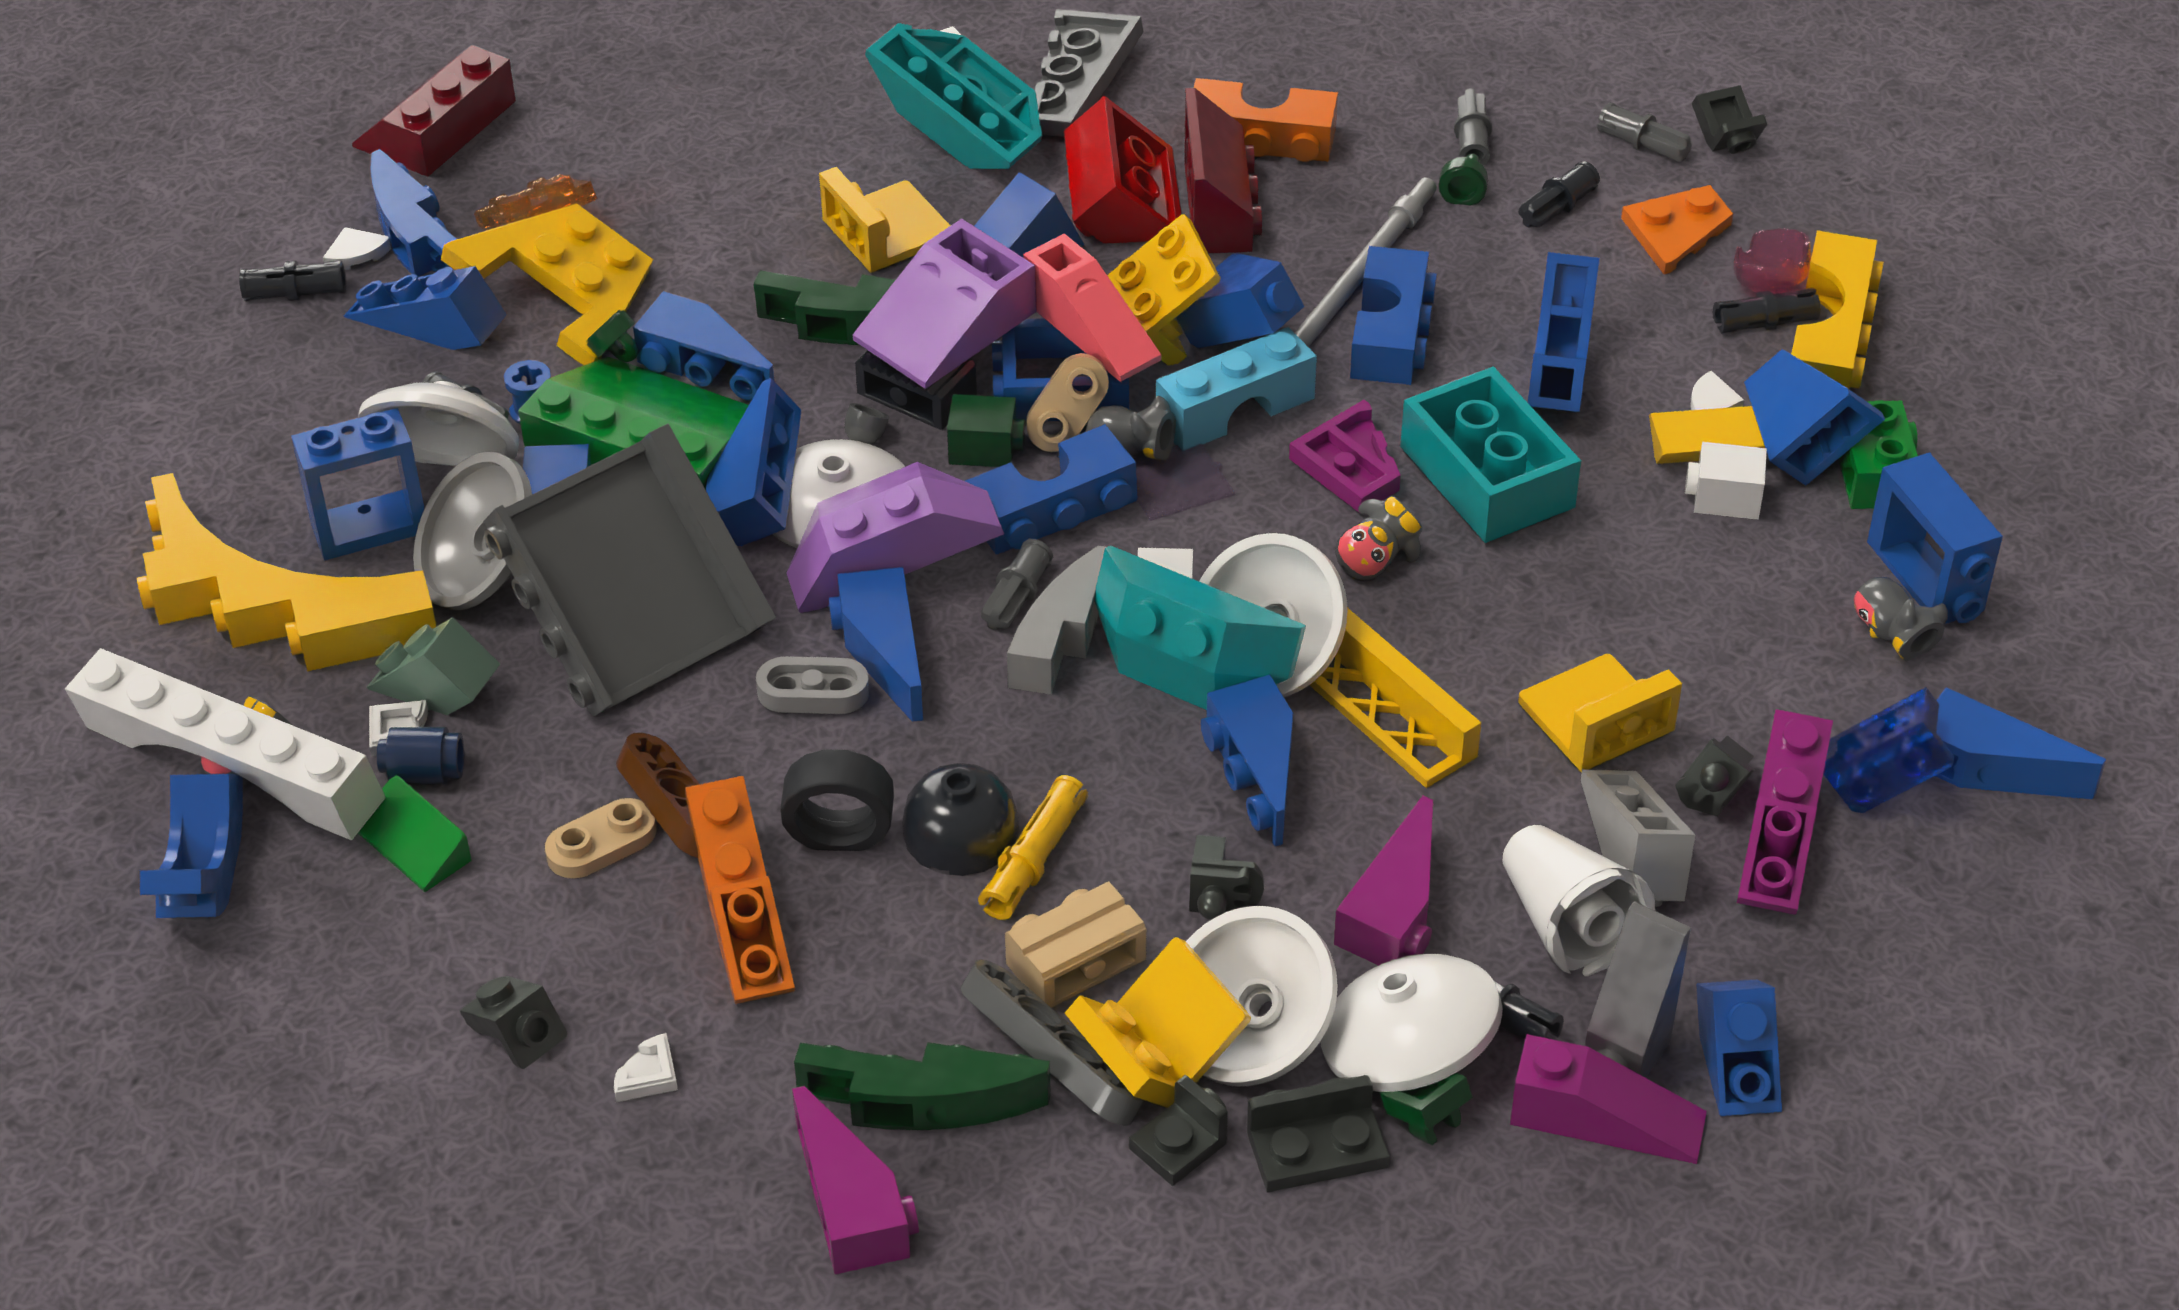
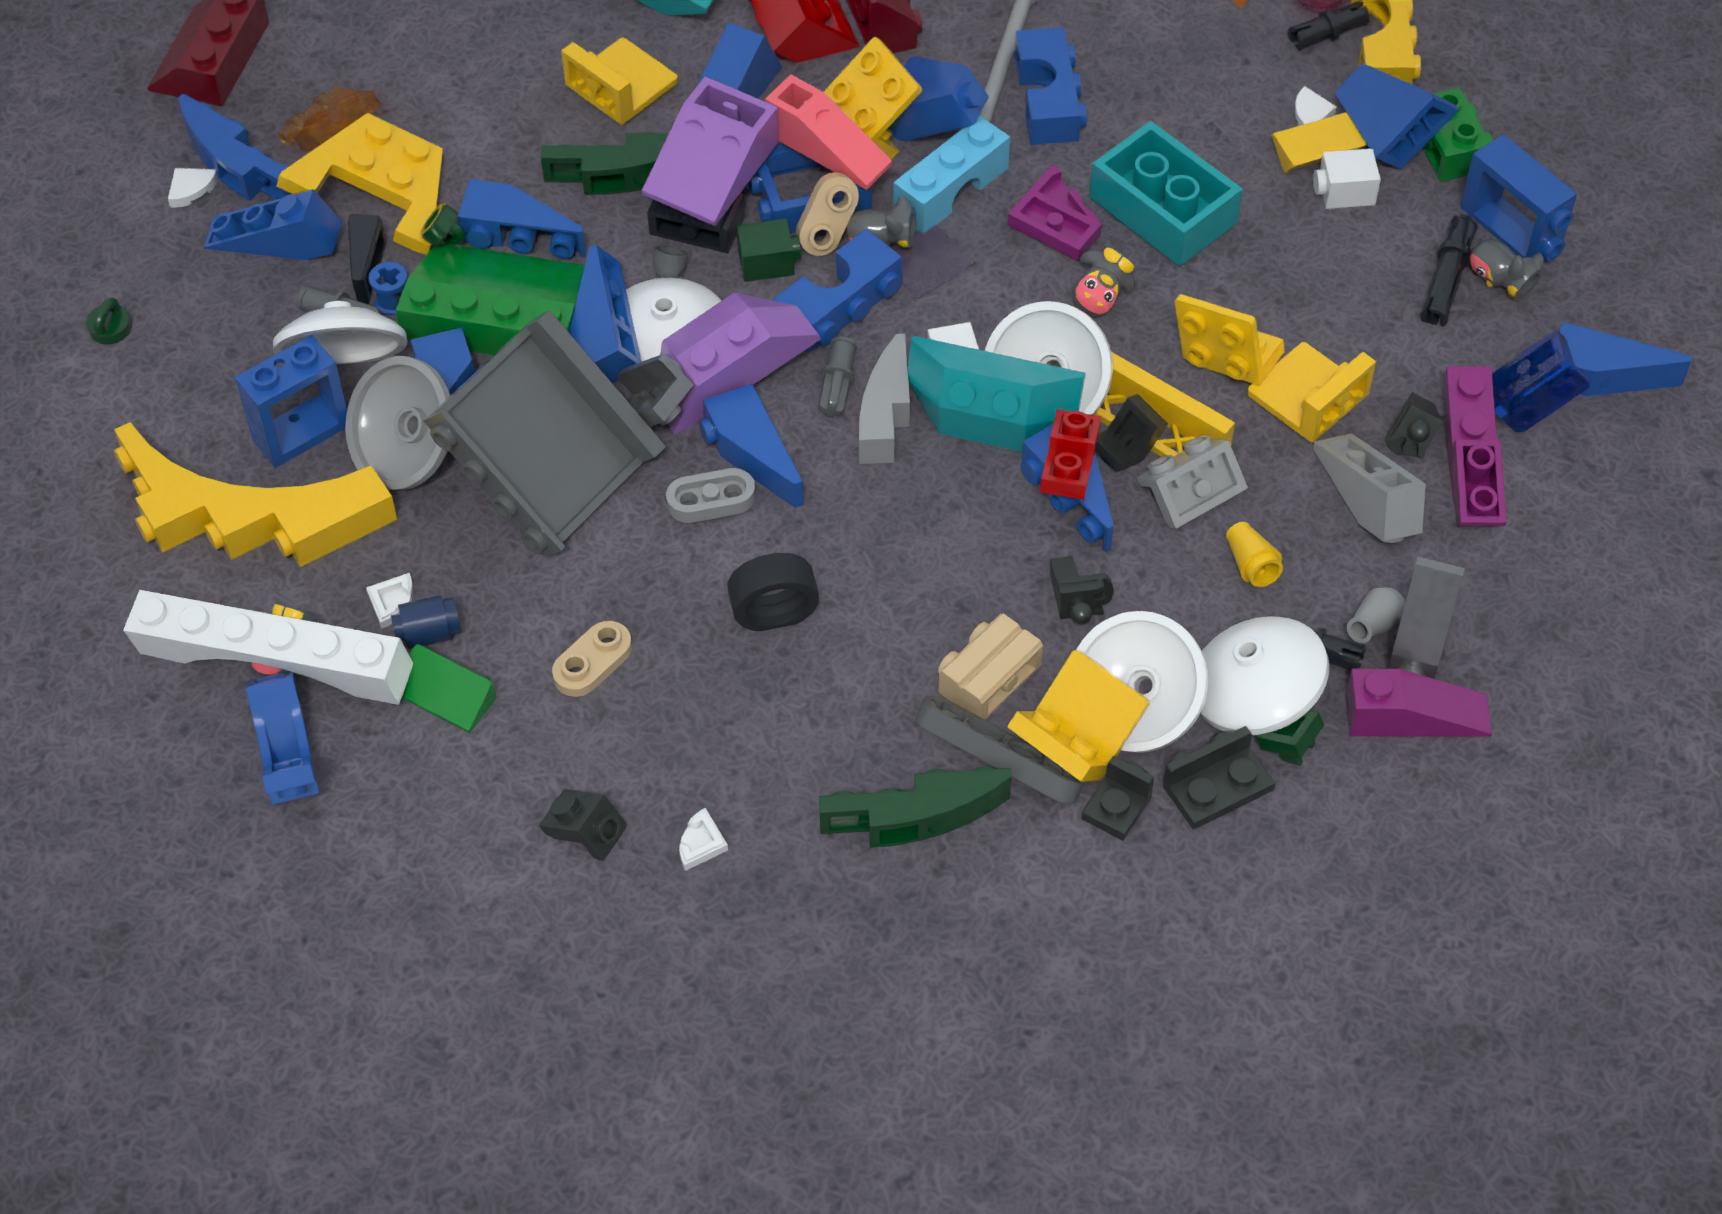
camera: 15 degrees left, 10 degrees up
(203, 371) = (109, 322): none -> dark green tile
(292, 280) = (150, 225): black pin -> none
(435, 666) = (411, 544): sand green slope -> none
(521, 338) = (367, 249): none -> black slope
(656, 778) = (654, 627): reddish brown beam -> none
(739, 890) = (720, 682): orange slope -> none
(788, 545) = (656, 388): none -> flat silver bracket
(853, 1191) = (893, 900): magenta slope -> none
(959, 819) = (865, 584): black cylinder -> none
(1025, 860) = (925, 607): yellow pin -> none
(1259, 716) = (1070, 454): none -> red slope
(1348, 715) = (1130, 434): none -> pearl dark grey bracket
(1389, 903) = (1215, 576): magenta slope -> none
(1394, 782) = (1194, 479): none -> light grey bracket
(1458, 885) = (1254, 555): none -> yellow cone
(1499, 628) = (1225, 340): none -> yellow bracket
(1563, 332) = (1186, 84): blue arch -> none
(1572, 896) = (1345, 547): white cone -> none
(1578, 984) = (1376, 615): none -> light grey cone
(1740, 1045) = (1498, 637): blue slope -> none
(1833, 595) = (1453, 258): none -> black pin

